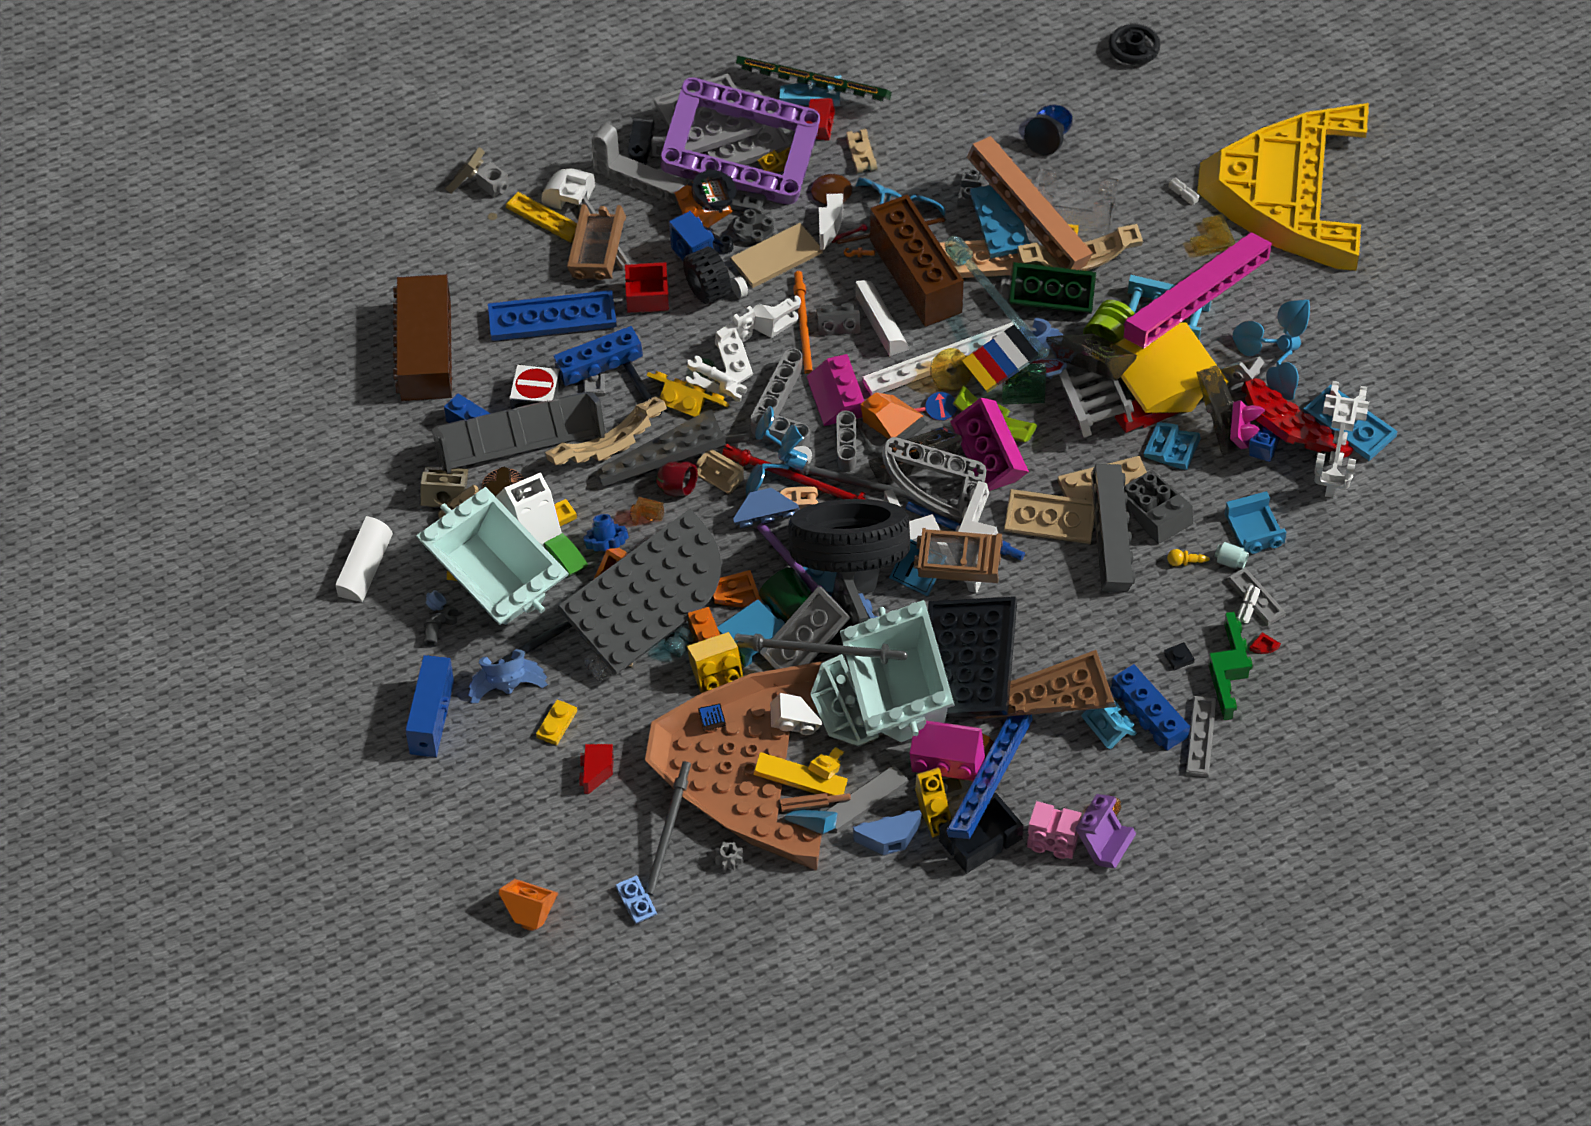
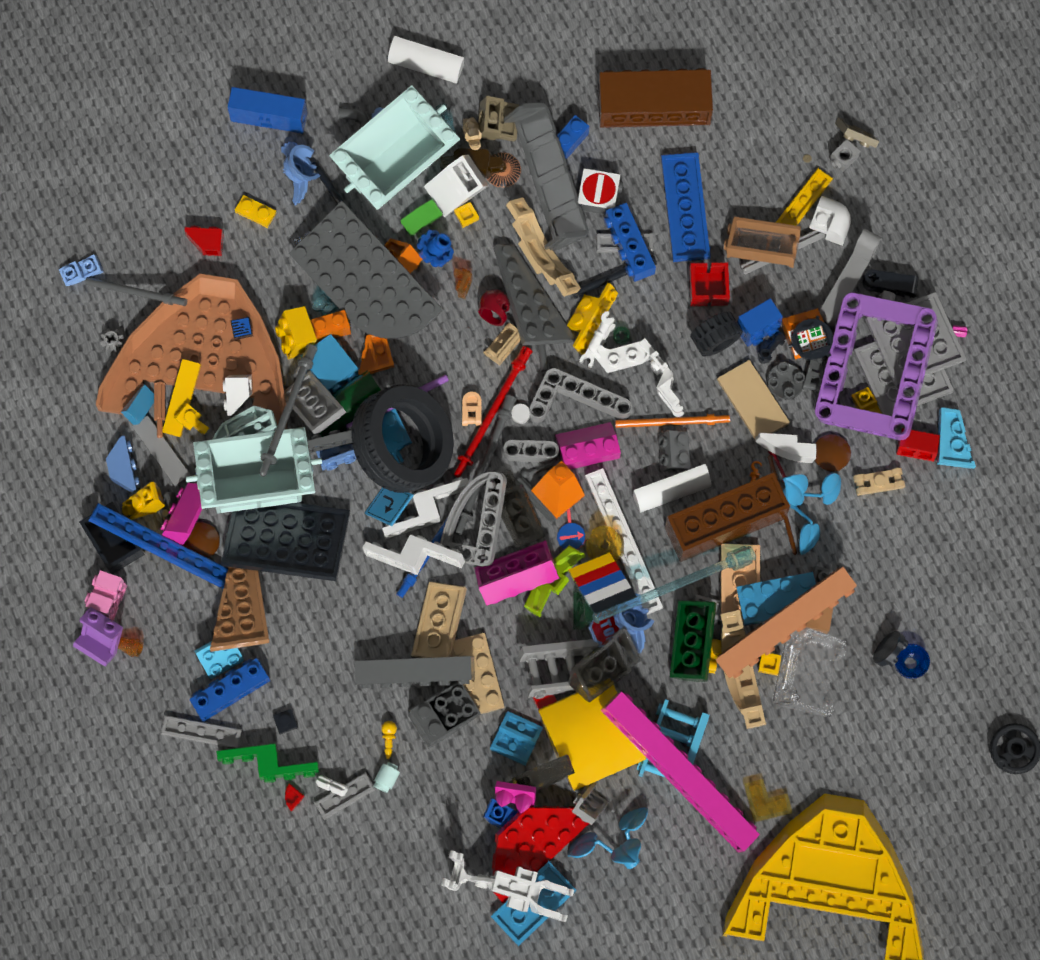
camera: 90 degrees right, 20 degrees up
(527, 903) = (83, 187): orange slope -> none
(739, 287) = (712, 366): white tile -> none
(764, 506) = (457, 379): medium blue slope -> none
(786, 453) = (503, 397): dark azure plant -> none
(821, 81) = (962, 438): dark green plate -> none
(958, 555) = (384, 532): medium nougat door -> none
(1109, 321) = (645, 690): lime wheel -> none
(1187, 193) = (822, 781): white piece -> none
(1254, 523) = (420, 803): dark azure panel -> none

